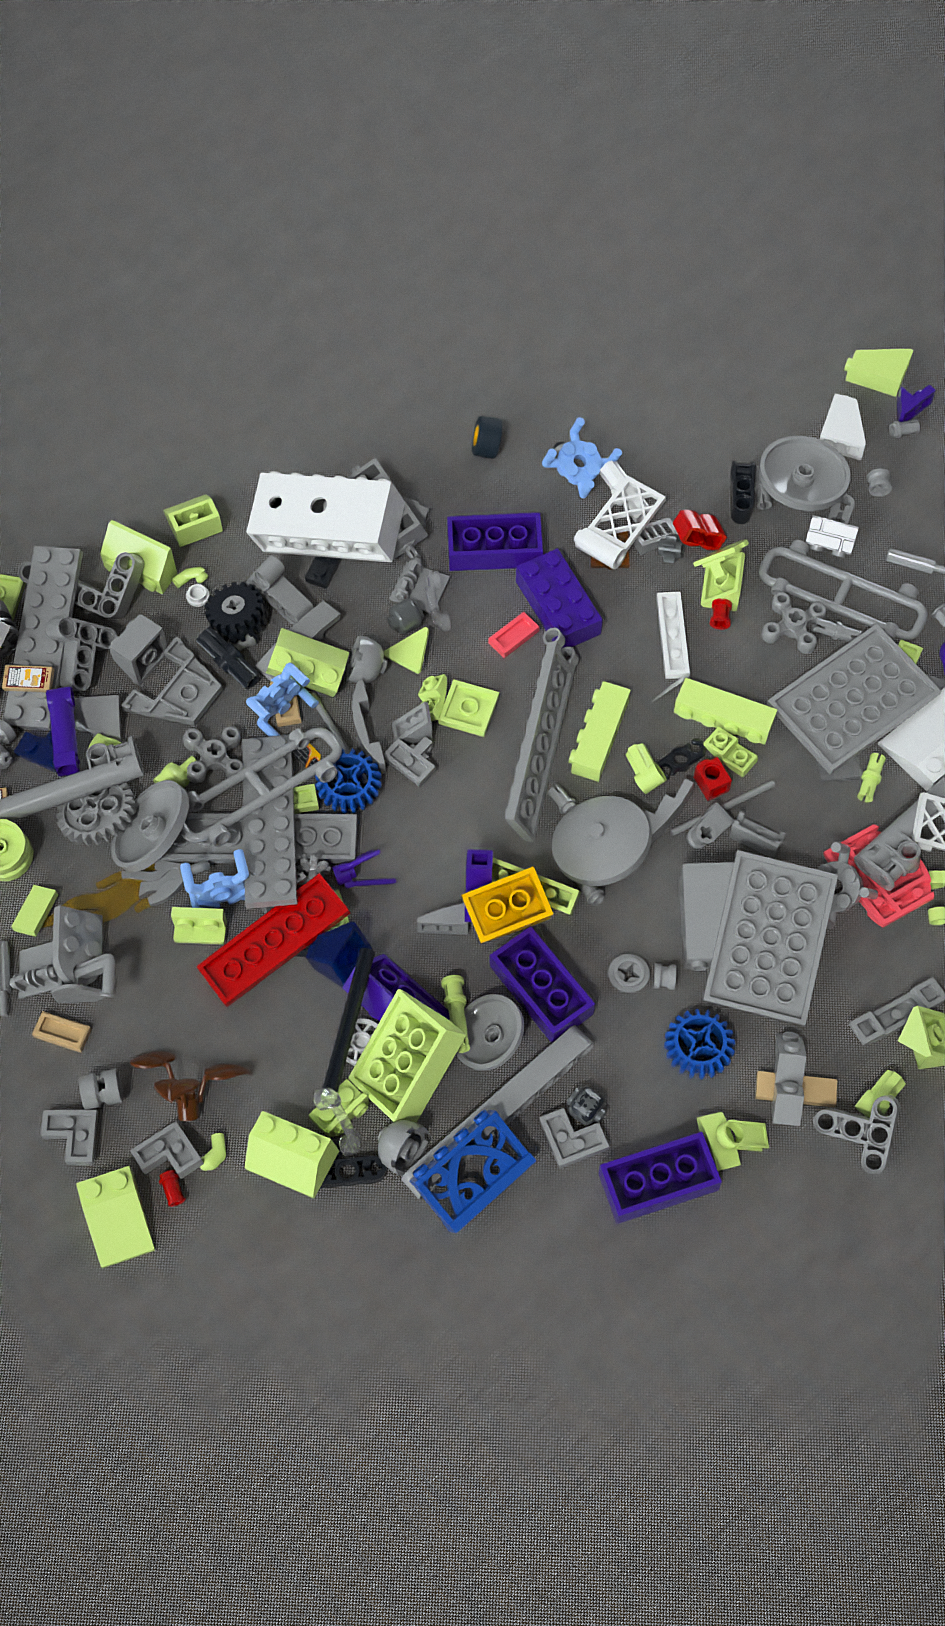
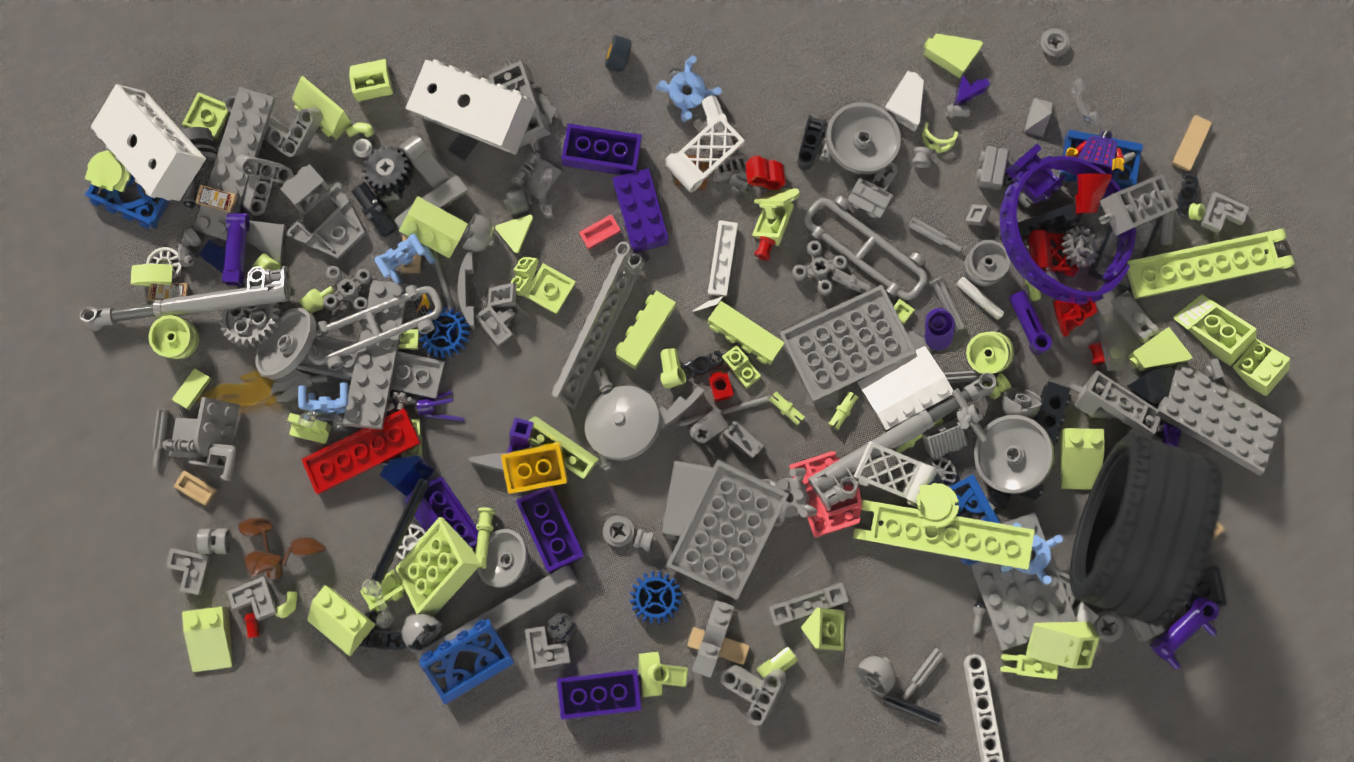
camera: 10 degrees right, 15 degrees up
(234, 909) = (308, 418): none -> clear bar
(800, 787) = (786, 408): none -> yellowish green pin
(874, 456) = (938, 141): none -> yellowish green helmet

